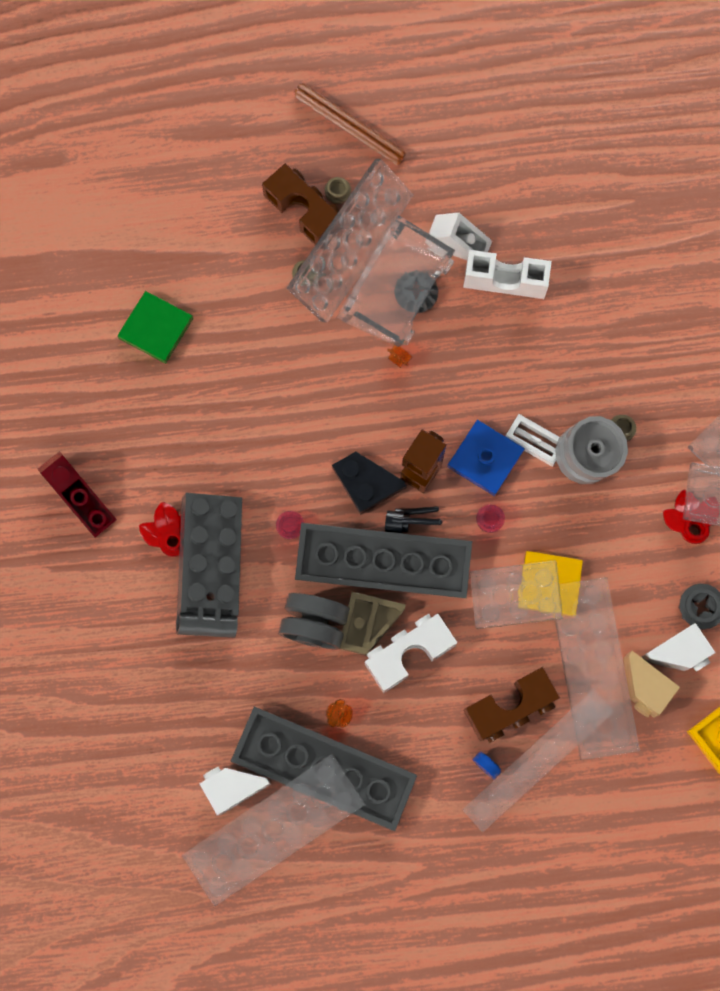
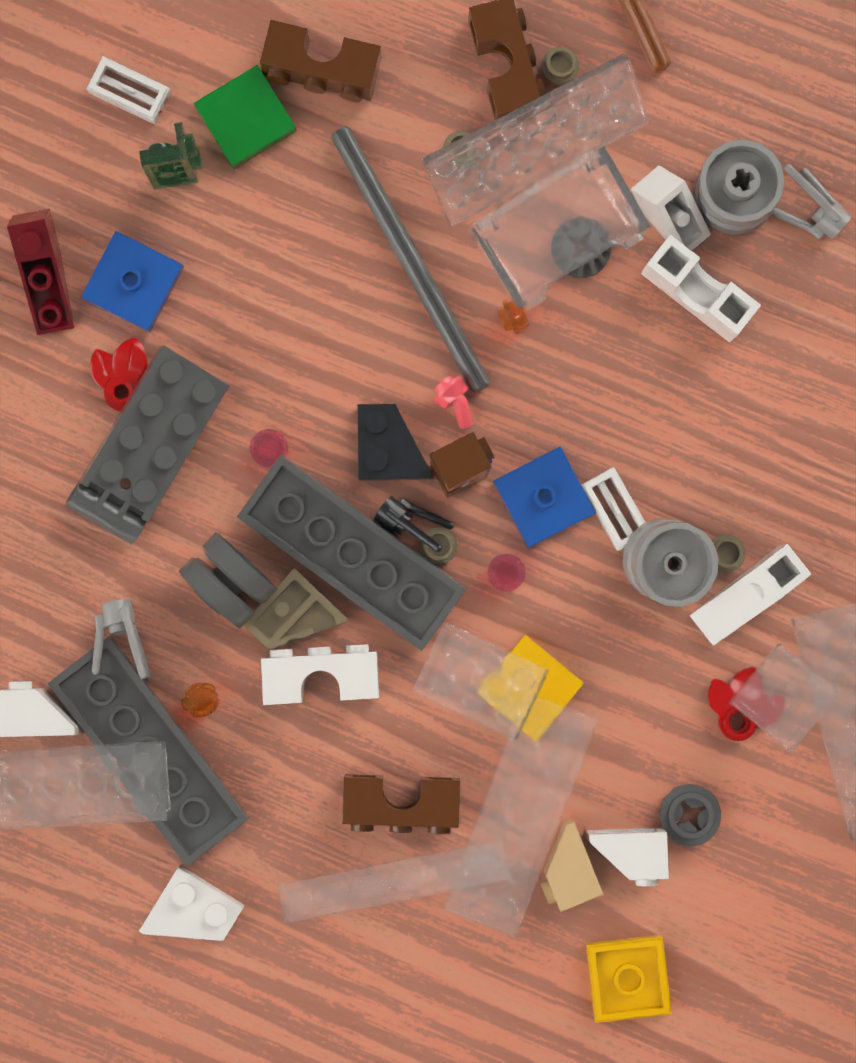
camera: 25 degrees right, 10 degrees up
(70, 361) = (156, 104): none -> white tile
(127, 377) = (172, 164): none -> clear green bracket
(139, 469) = (132, 281): none -> blue plate
(166, 277) = (349, 73): none -> reddish brown arch
(256, 691) = (120, 620): none -> light grey plant
(313, 357) = (410, 259): none -> dark grey axle
(388, 423) = (453, 392): none -> coral plate
(414, 861) = (192, 909): none -> white wing
(439, 531) = (446, 540): none -> dark tan plate
(487, 765) = (333, 853): blue tile -> none
(493, 201) = (741, 165): none -> light grey wheel
(558, 190) = (829, 216): none -> light grey plant
(653, 442) = (750, 593): none -> white slope

